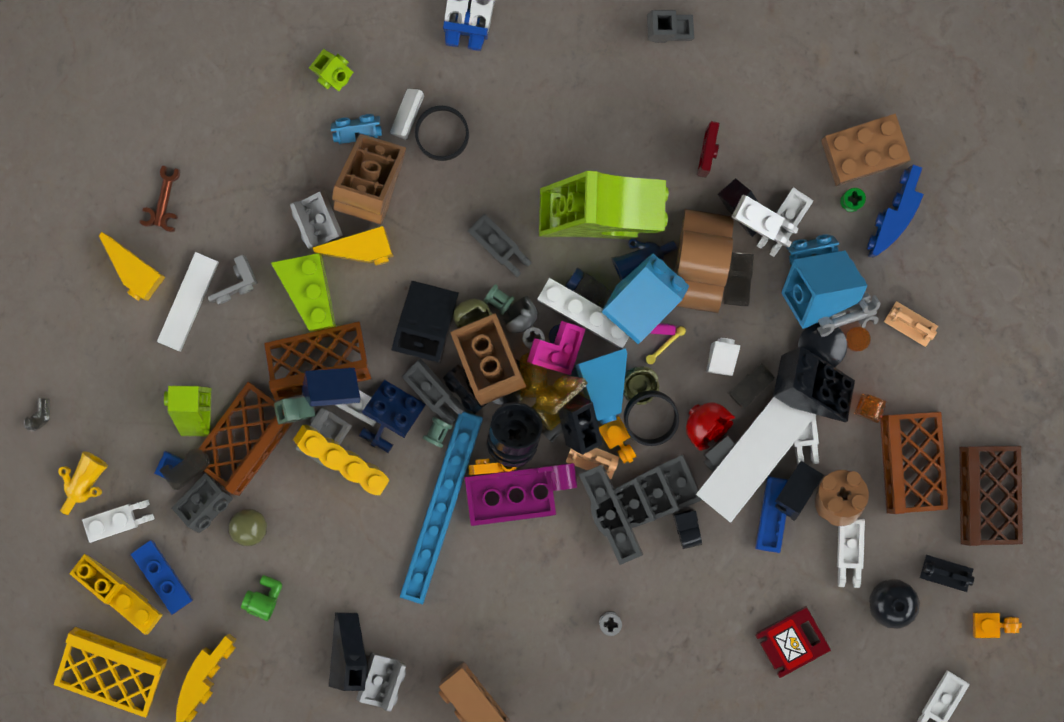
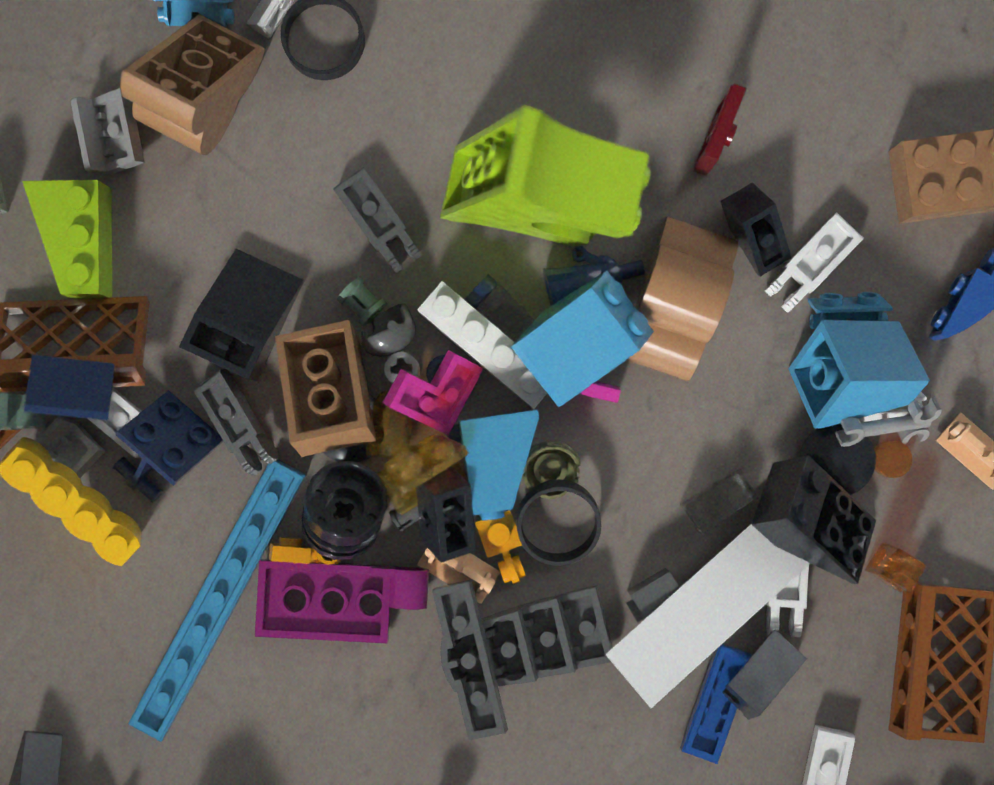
camera: 10 degrees right, 0 degrees up
(362, 247) = (175, 184): yellow slope -> none
(437, 432) = (231, 484): sand green bush -> none
(458, 383) = (274, 416): black hinge -> none
(470, 311) = (313, 310): olive hair -> none
(680, 331) = (574, 432): light yellow hinge -> none
(688, 529) = (584, 700): black leg -> none
(708, 423) = (642, 547): red cylinder -> none
(723, 357) = (685, 449): white slope -> none
(739, 279) = (727, 346): clear smoke slope -> none
(762, 220) = (784, 252): white hinge -> none
(848, 486) = (843, 684): medium nougat brick -> none
(857, 194) = (930, 239): green bush -> none

